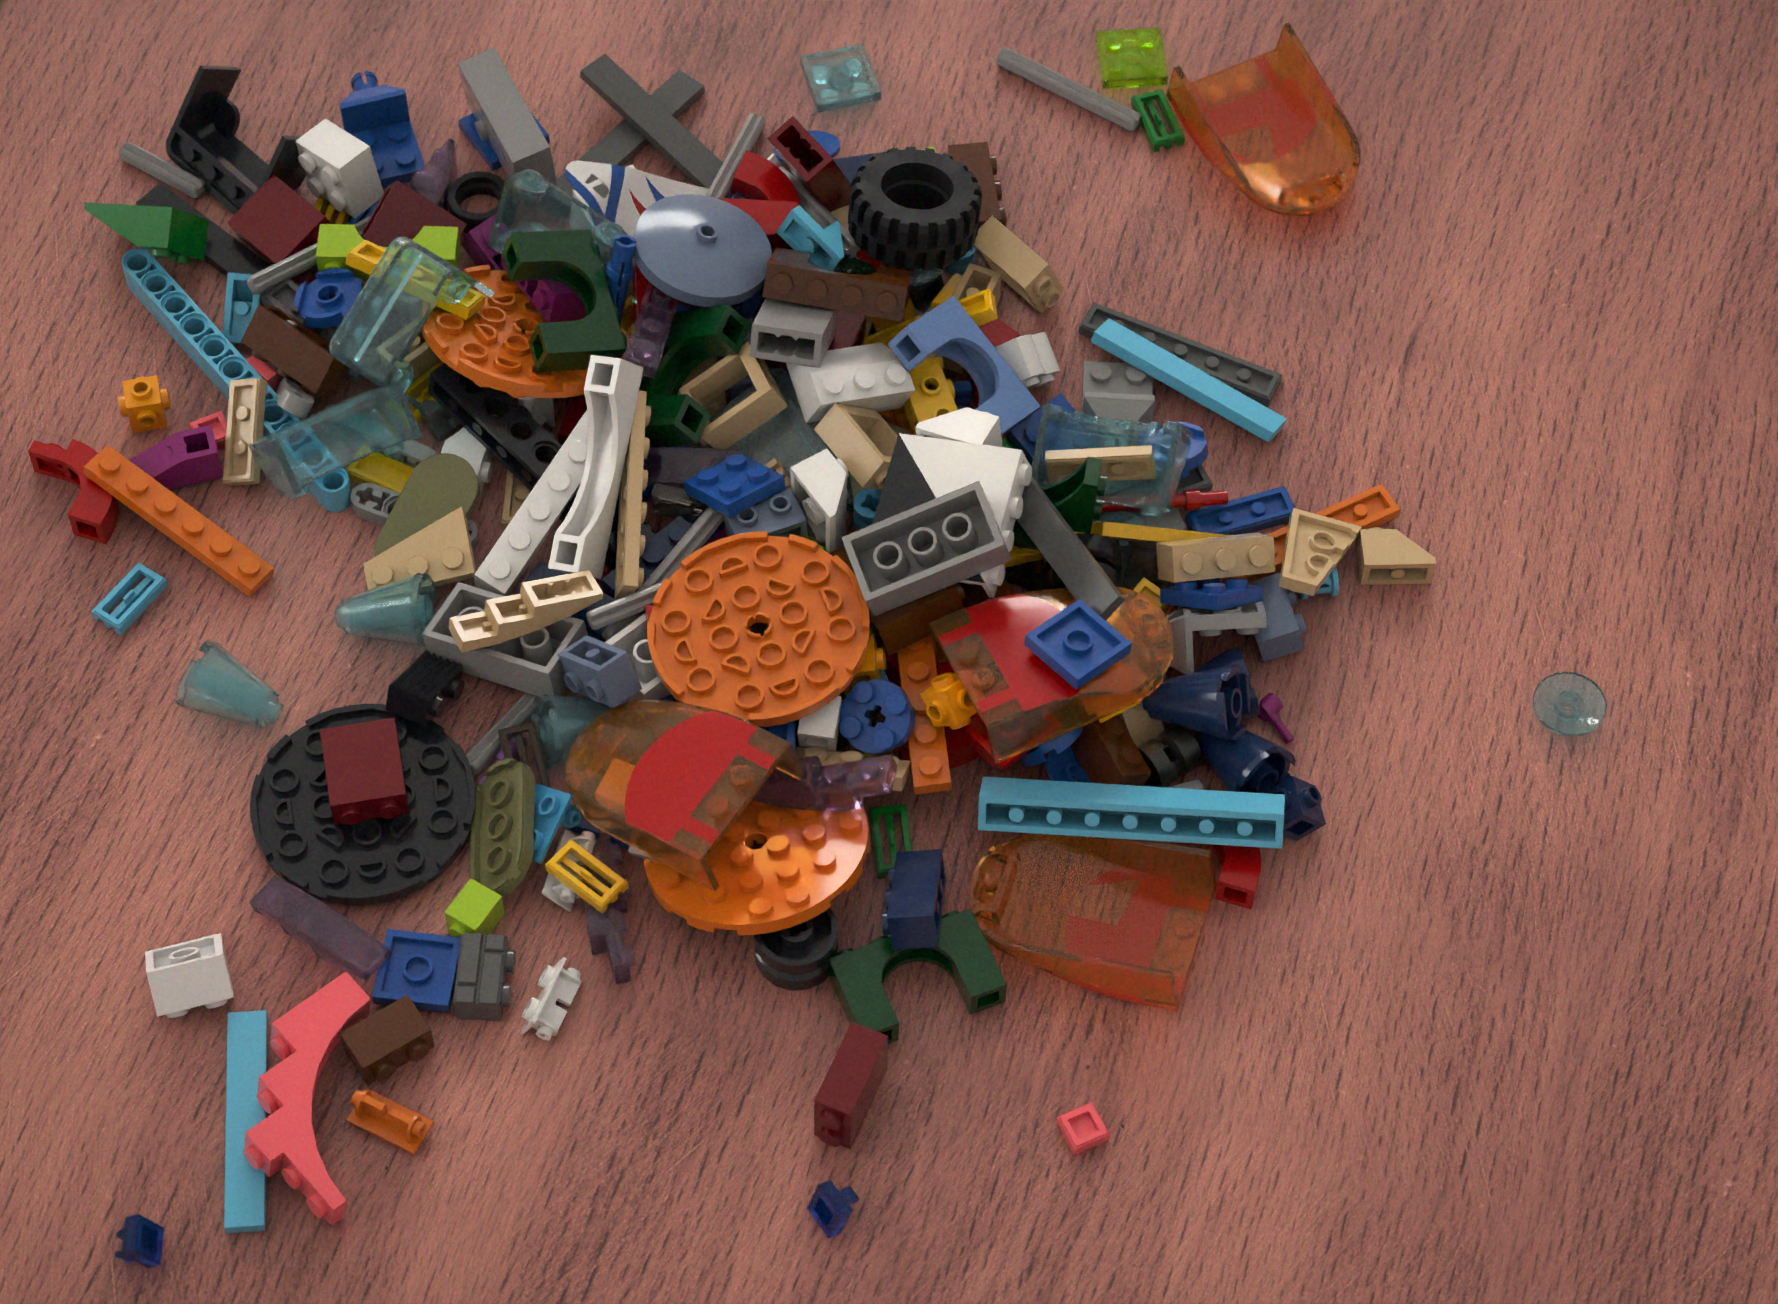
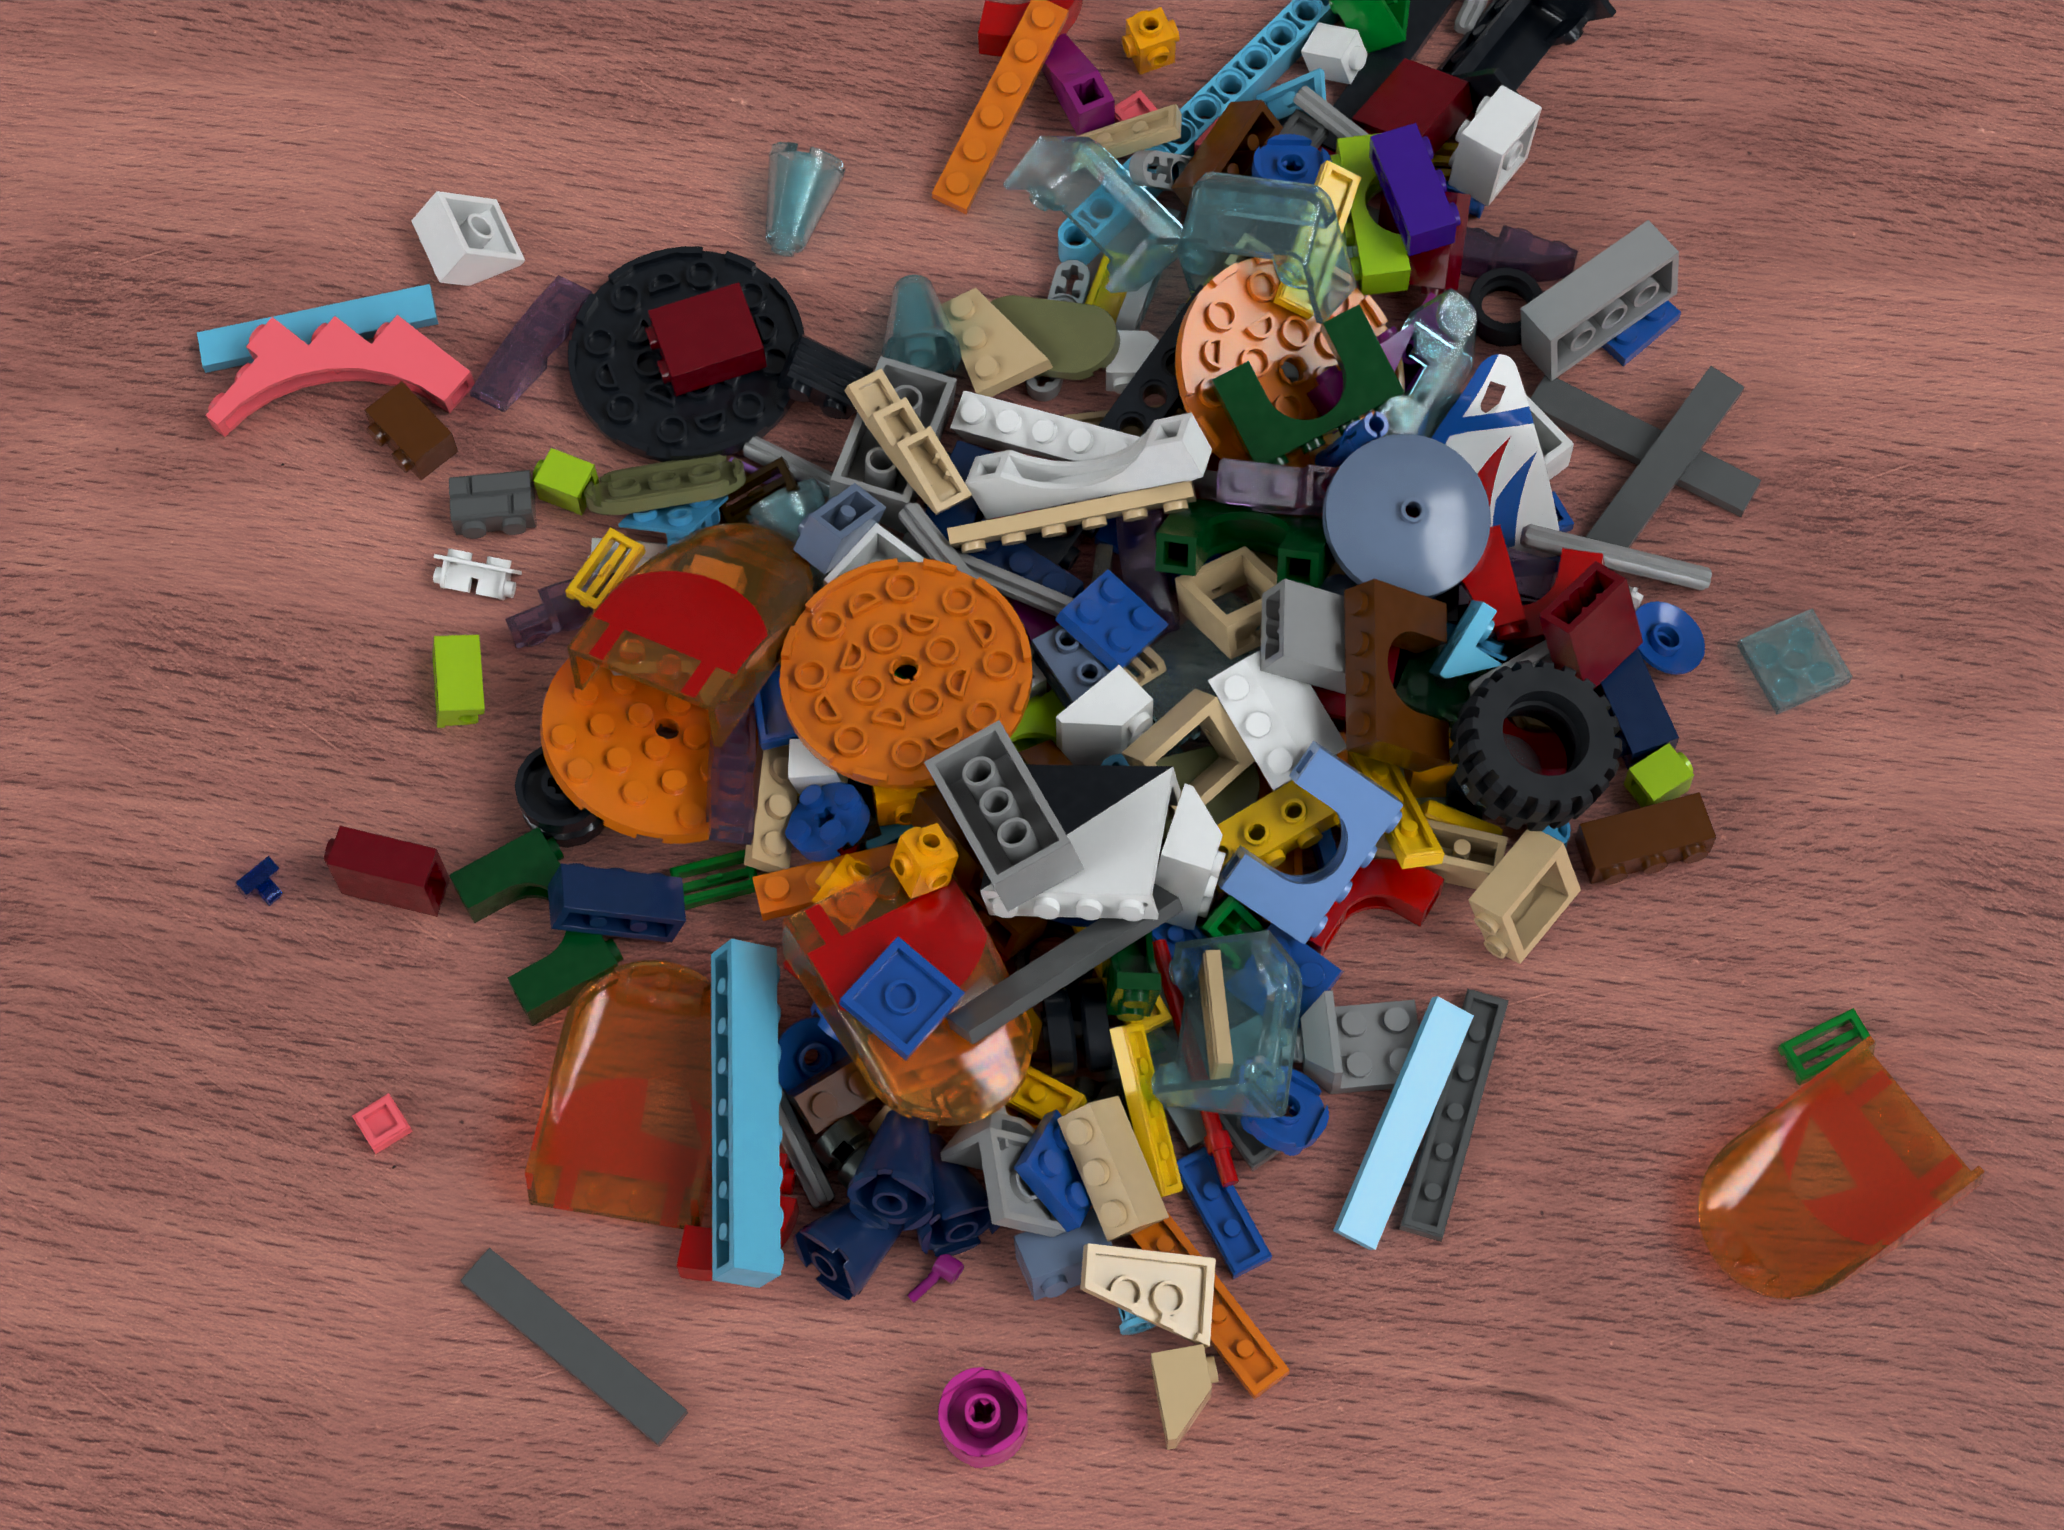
camera: 85 degrees right, 10 degrees up
(134, 602) = (906, 93): medium azure tile -> none
(141, 1241) = (174, 265): clear blue tile -> none
(202, 273) = (1335, 51): none -> white brick
(382, 121) = (1579, 187): blue plate -> none
(388, 1120) = (328, 452): orange hinge -> none
(389, 204) = (1414, 189): none -> dark purple brick
(419, 967) = (495, 440): blue plate -> none
(659, 1024) = (457, 680): none -> lime hinge
(955, 613) = (924, 860): none -> light orange brick
(1030, 359) = (1380, 926): white brick -> none
(1068, 89) = (1848, 931): light grey axle -> none
(1131, 58) = (1923, 1002): clear neon green plate -> none
(1302, 807) = (803, 1304): dark blue brick -> none
(1305, 993) = (574, 1347): none -> dark grey tile
(1403, 690) = (990, 1392): none -> dark pink brick

